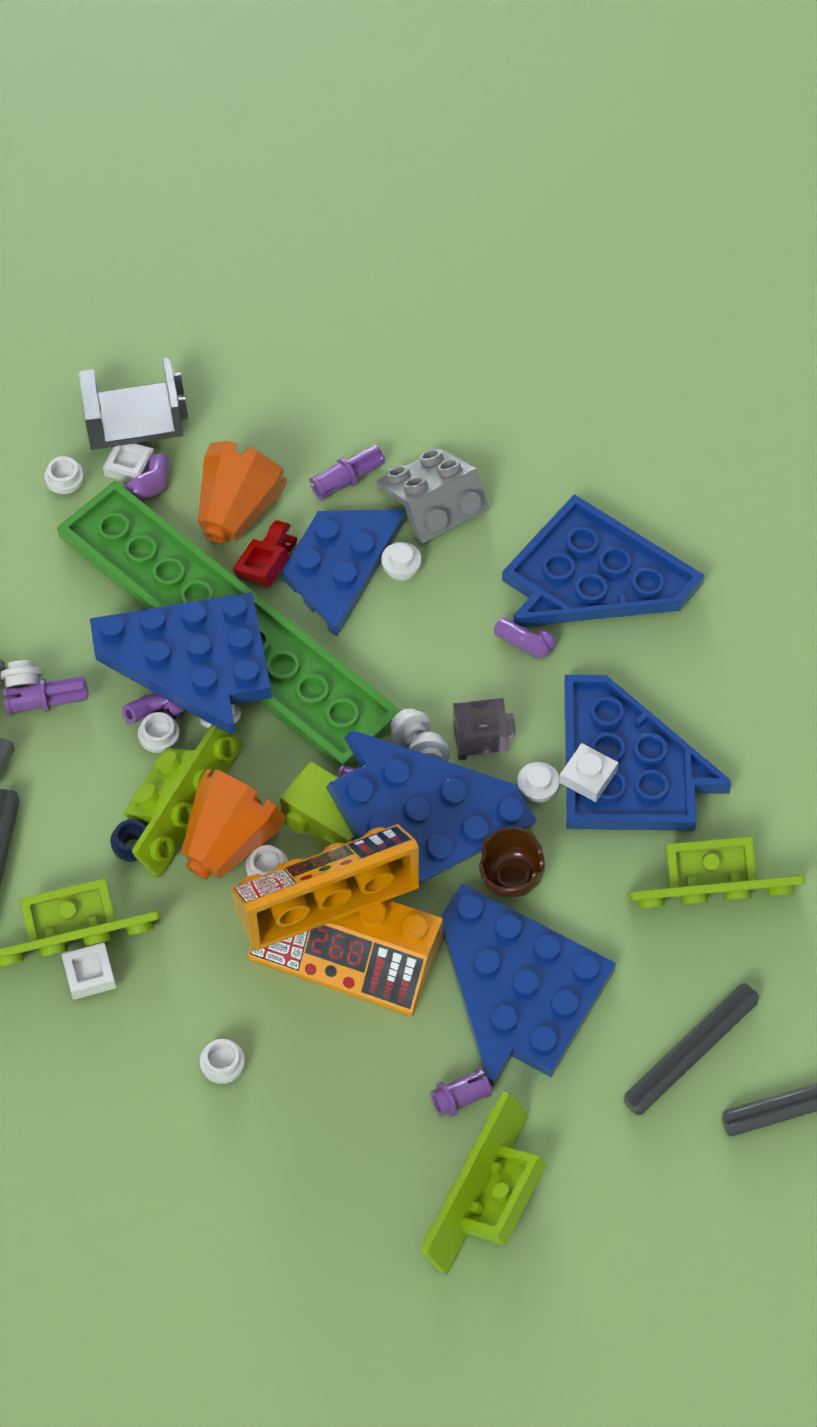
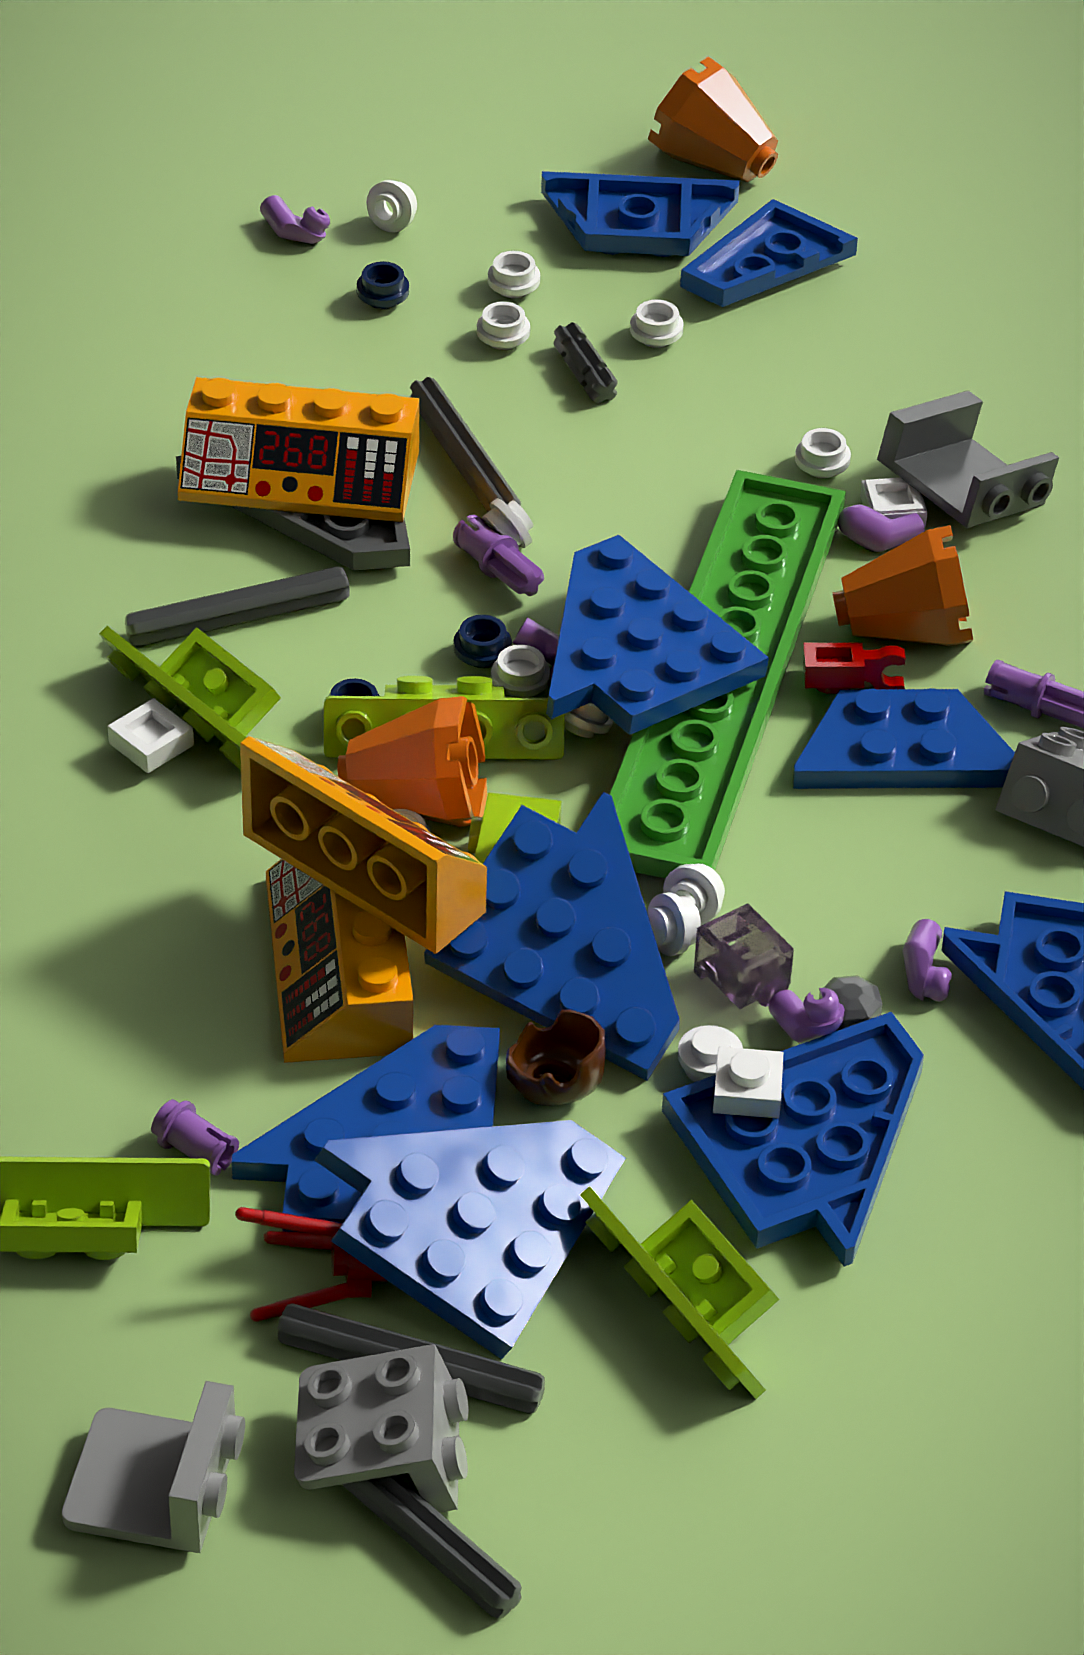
camera: 60 degrees right, 15 degrees down
(114, 732) = (481, 640): none -> dark blue plate
(222, 1061) = (105, 897): white plate -> none
(401, 560) = (949, 798): white plate -> none
(537, 693) = (858, 997): none -> dark grey tile
(546, 721) = (808, 1018): none -> medium lavender arm
(602, 1045) = (315, 1235): none -> red plant
(618, 964) = (471, 1216): none -> wing
(722, 1223) = (156, 1474): none -> light grey bracket
(749, 1087) = (381, 1421): none -> light grey bracket

